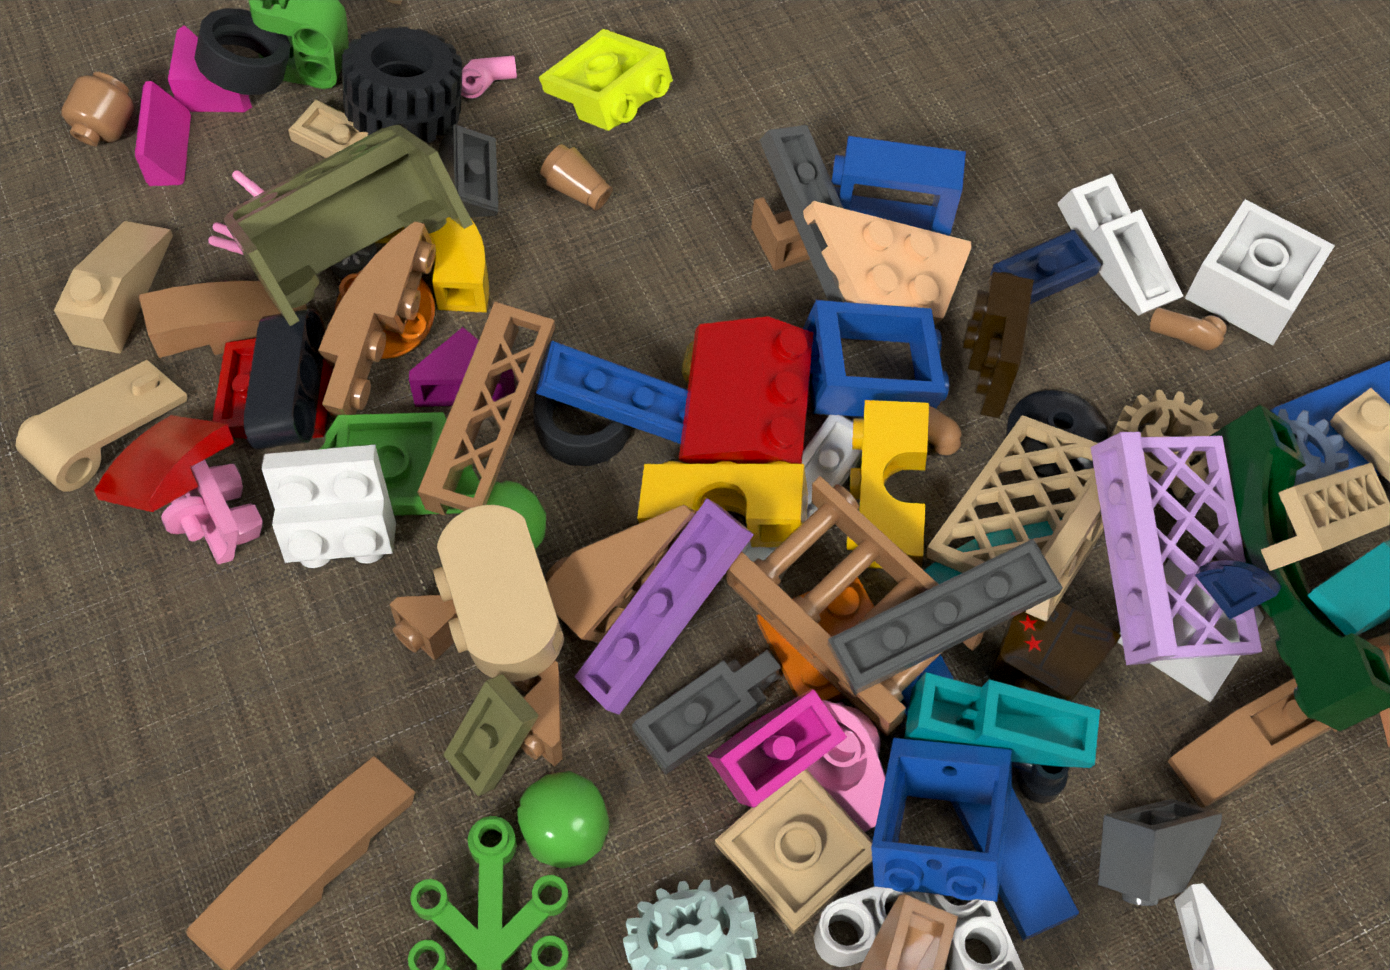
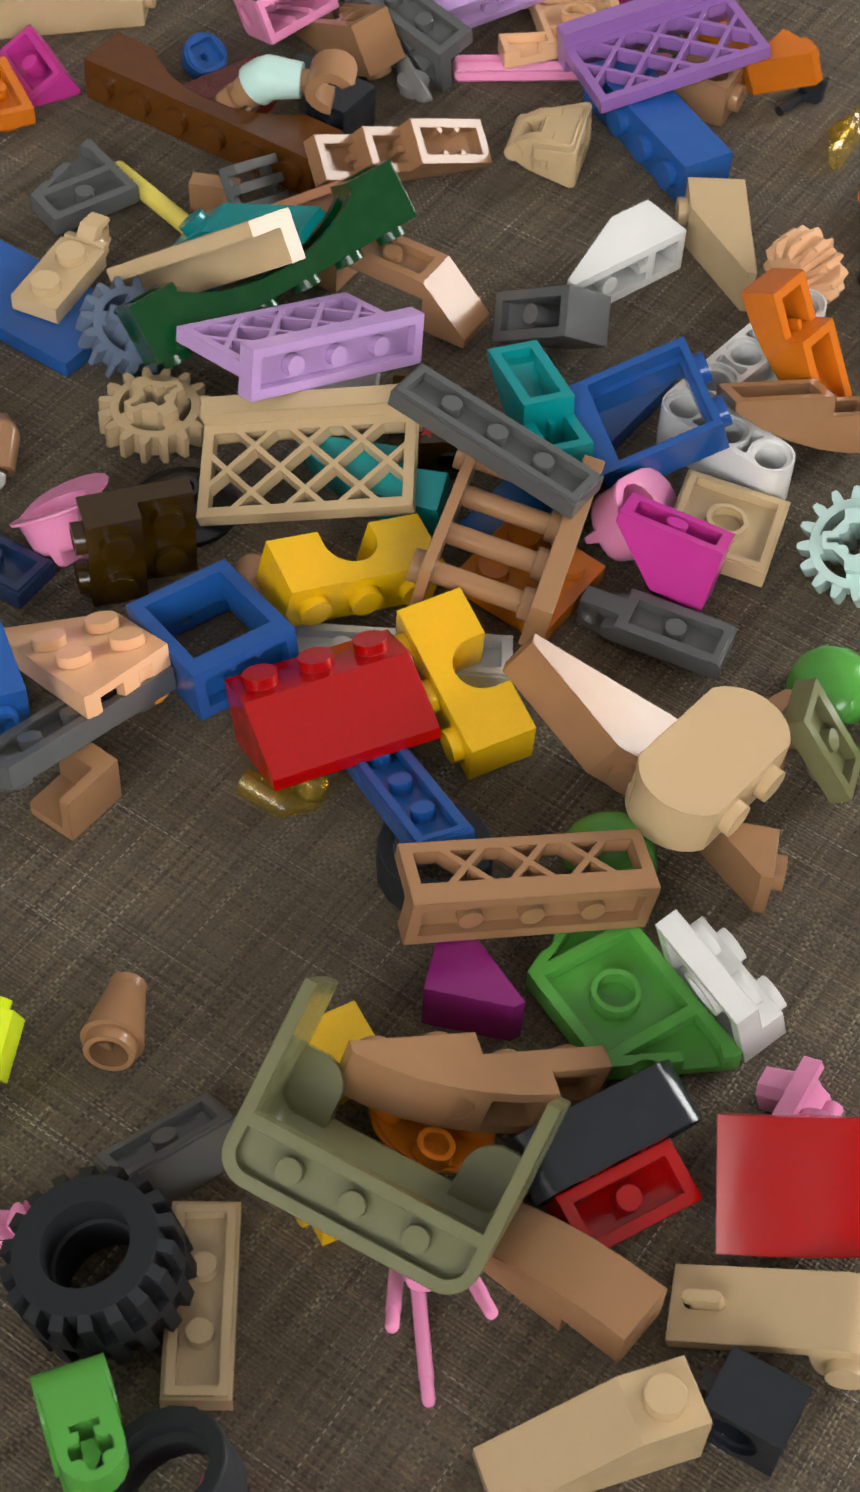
camera: 120 degrees left, 10 degrees down
(60, 363) = (752, 1408): none -> black brick
(663, 606) = (605, 648): medium lavender plate -> none
(1066, 323) = (48, 517): none -> bright pink piece
(1237, 585) = (320, 286): dark blue tile -> none

